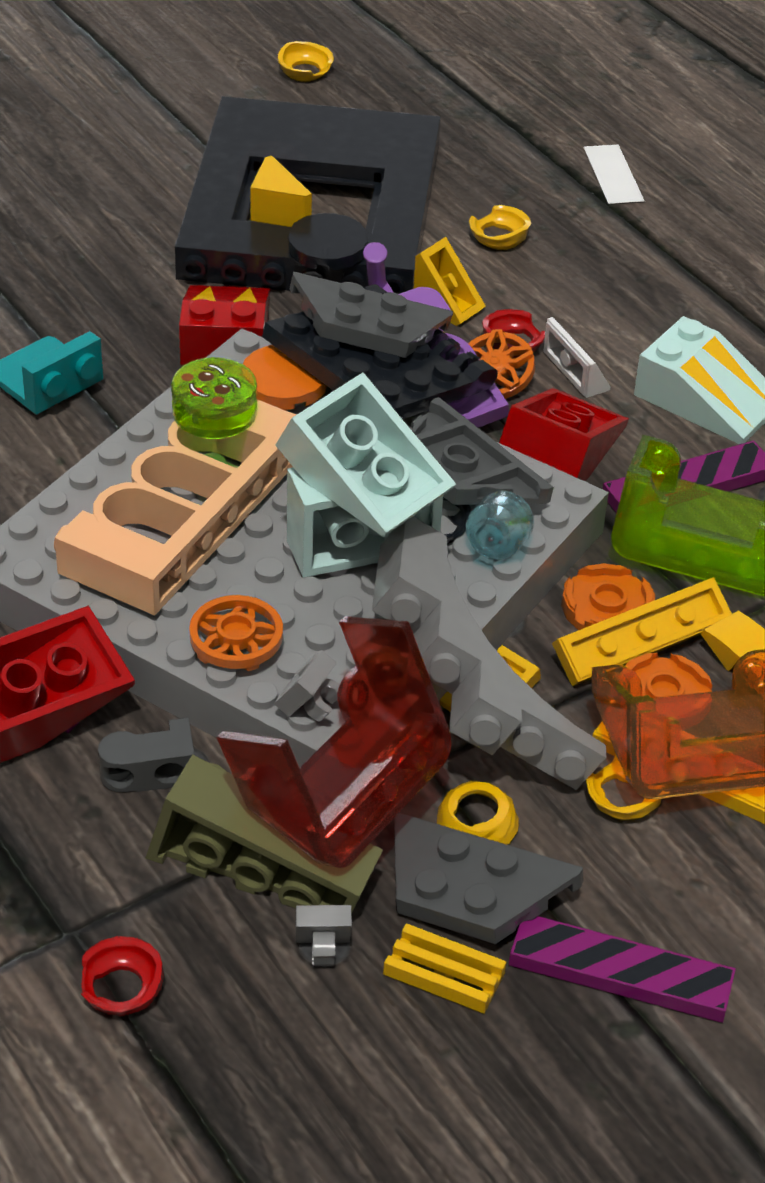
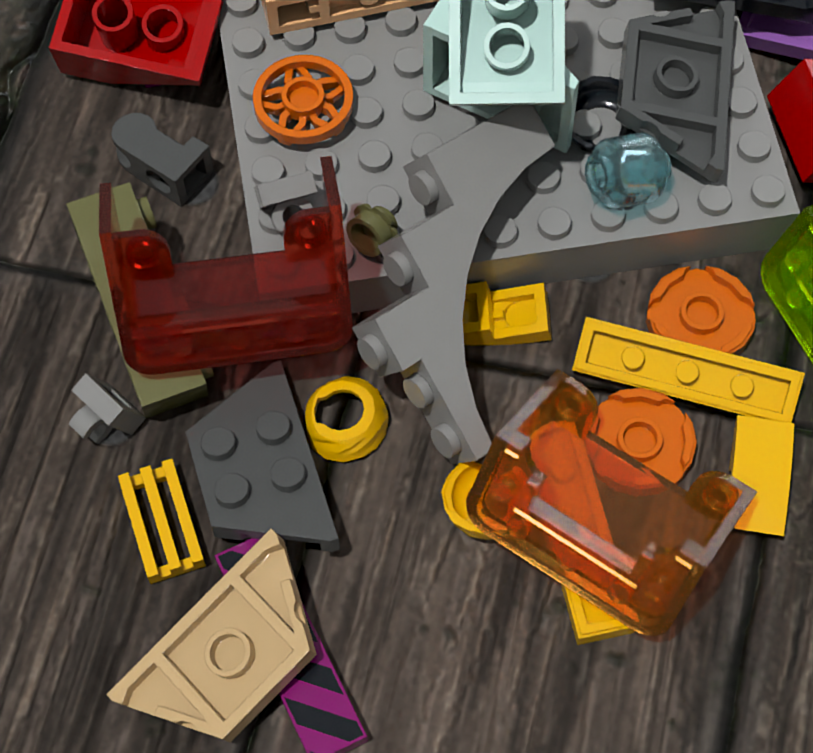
camera: 50 degrees right, 20 degrees up
(600, 992) = (227, 650): none -> tan wing

